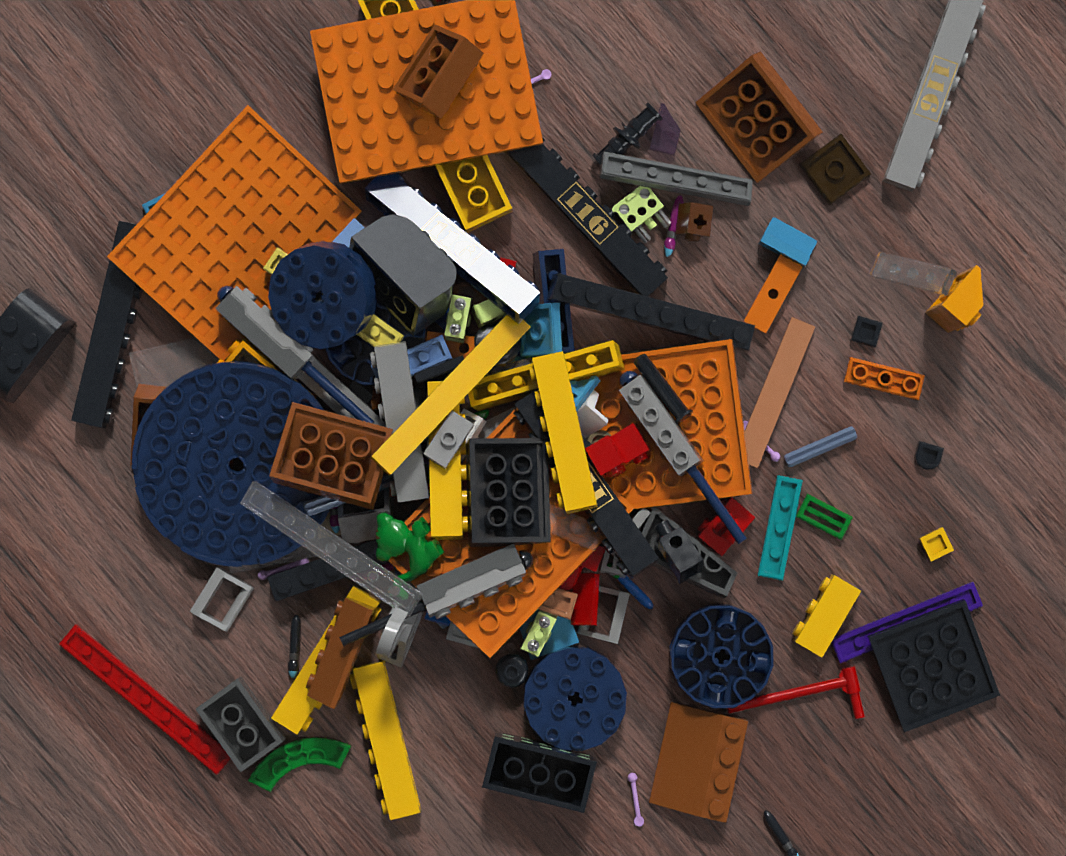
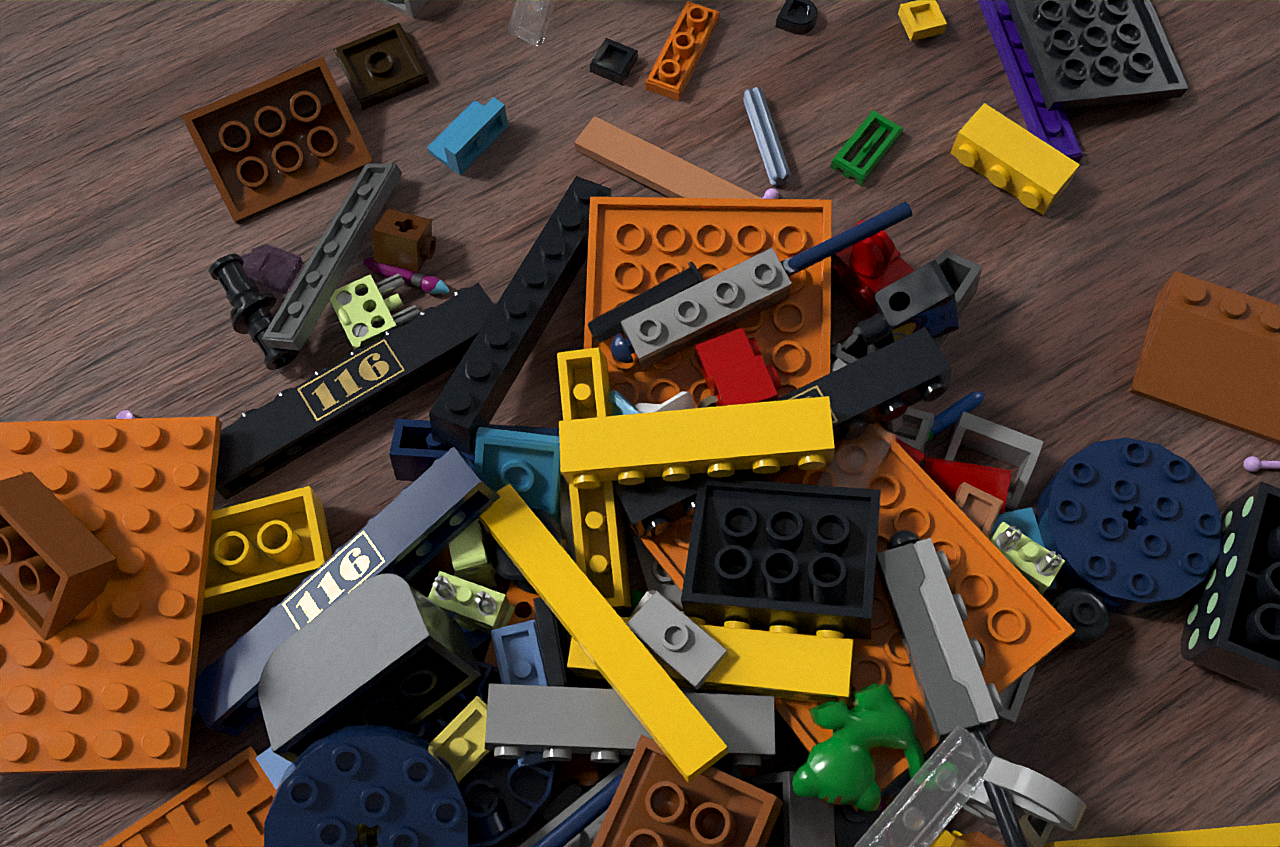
camera: 80 degrees left, 20 degrees down
(733, 679) = (1069, 300): dark blue brick -> none
(779, 527) = (866, 200): teal tile -> none
(780, 280) = (532, 157): orange tile -> none
(847, 681) = (1110, 152): red bar -> none

